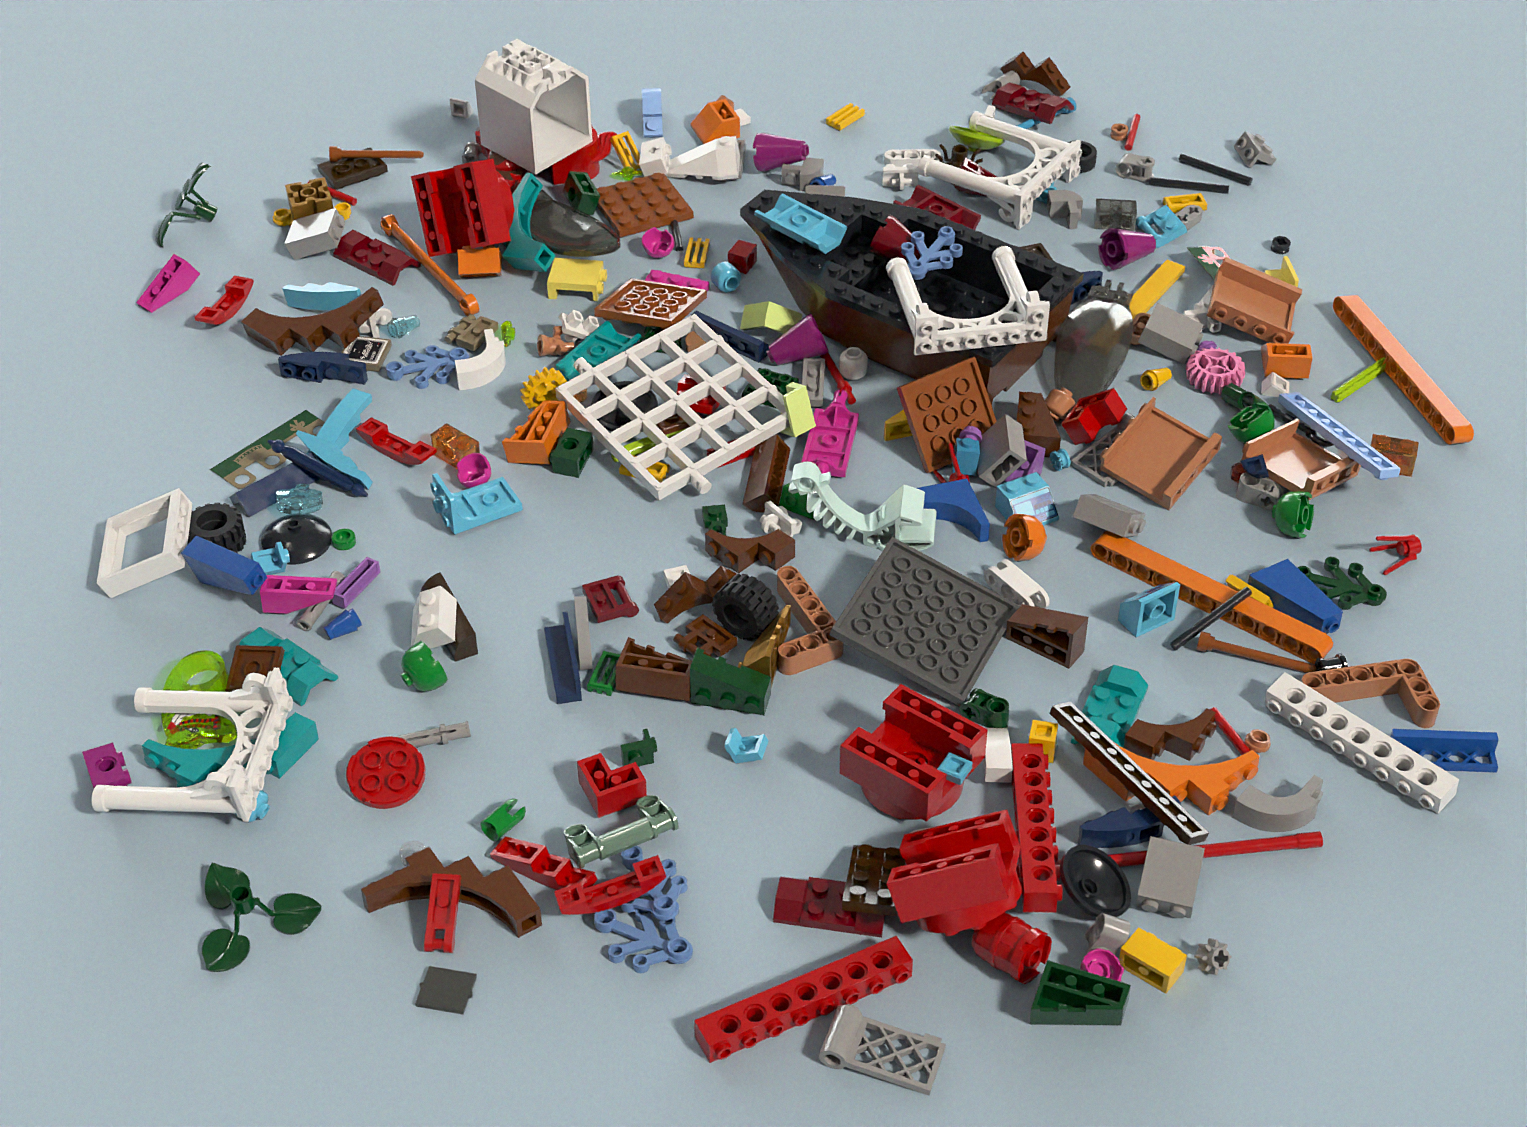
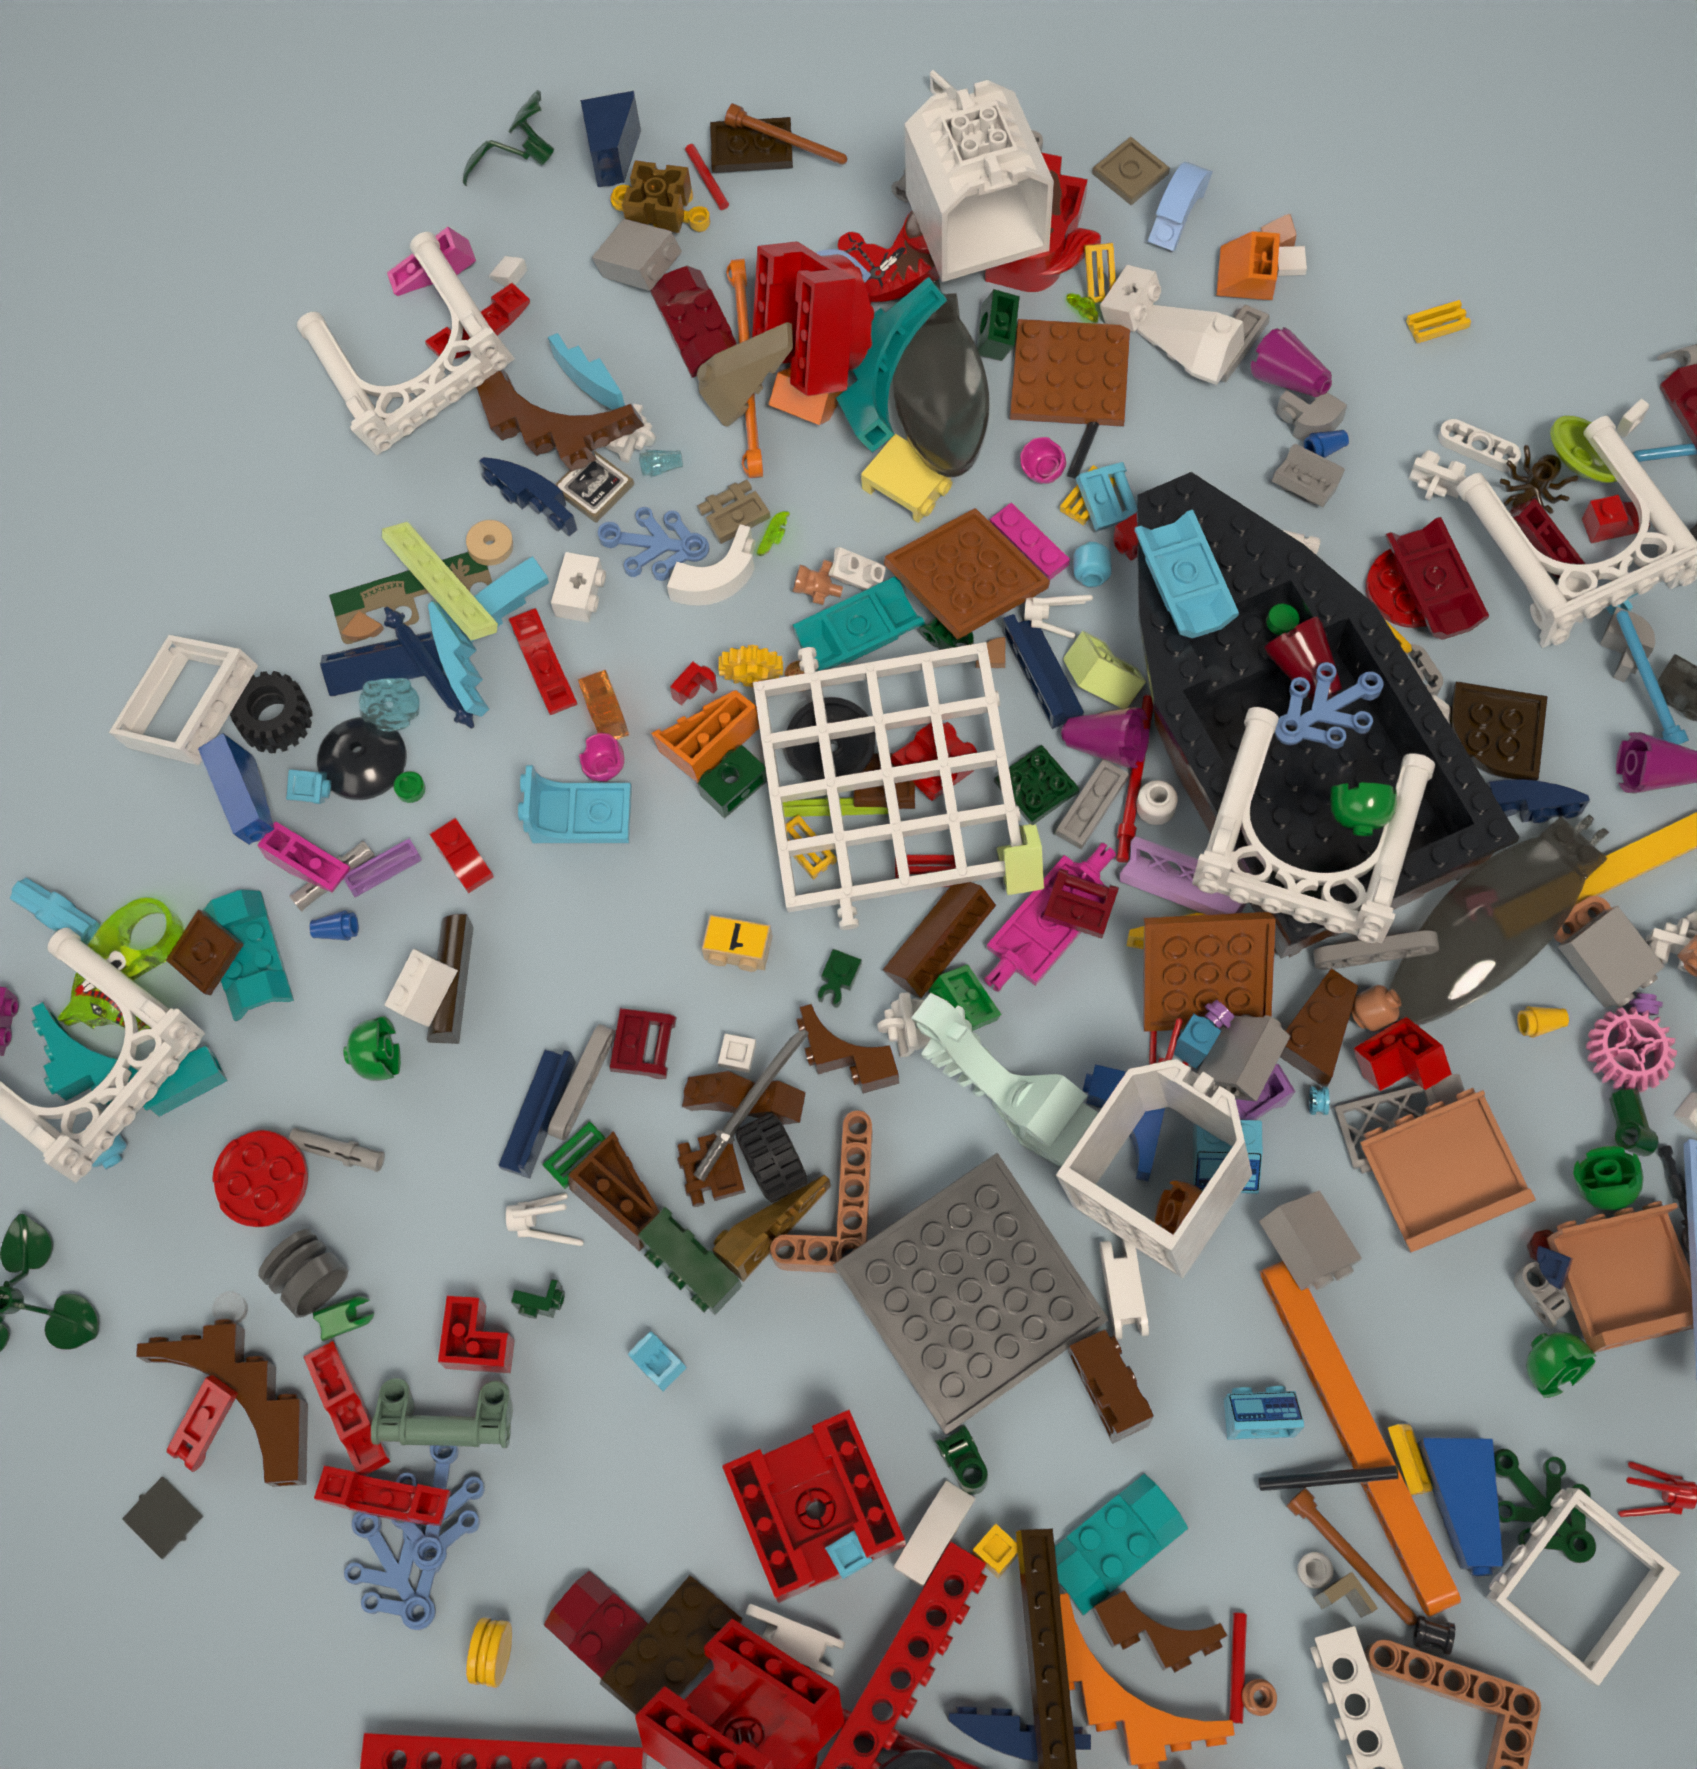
camera: 35 degrees right, 25 degrees up
(115, 697) = (53, 909): none -> medium azure piece
(181, 362) = (488, 355): none -> white arch
(225, 273) = (509, 271): none -> white slope
(248, 472) = (361, 627): none -> medium nougat tile
(252, 186) = (612, 135): none -> dark blue slope
(288, 424) = (439, 581): none -> yellowish green plate
(311, 403) = (489, 531): none -> tan piece
(393, 400) = (577, 587): none -> white brick
(407, 554) = (461, 855): none -> red arch
(429, 260) = (739, 371): none -> dark tan wedge
(459, 799) = (303, 1273): none -> dark grey wheel
(508, 414) = (689, 682): none -> red bracket
(595, 714) = (523, 1216): none -> white plant
(609, 110) = (1130, 170): none -> dark tan tile
(636, 525) = (737, 943): none -> brick
(706, 611) = (725, 1136): none -> dark grey sword
(709, 244) = (1101, 498): none -> medium azure plate
(709, 306) = (1038, 609): none -> white plant
(749, 939) = (489, 1652): none -> yellow head
(845, 421) = (1076, 911): none -> dark red plate
(865, 238) = (1282, 619): none -> green tile
(887, 396) = (1171, 884): none -> lavender fence
(987, 278) = (1363, 807): none -> green cylinder
(1006, 520) = (1145, 1090): none -> white container
(1012, 161) = (1610, 519): none -> red arch
(1057, 363) = (1362, 953): none -> light grey beam
(1083, 207) = (1671, 732): none -> dark azure piece
(1238, 672) = (1315, 1570): none -> white tile
(1269, 661) = (1354, 1592): none -> dark tan panel
(1400, 571) = (1631, 1616): none -> white window

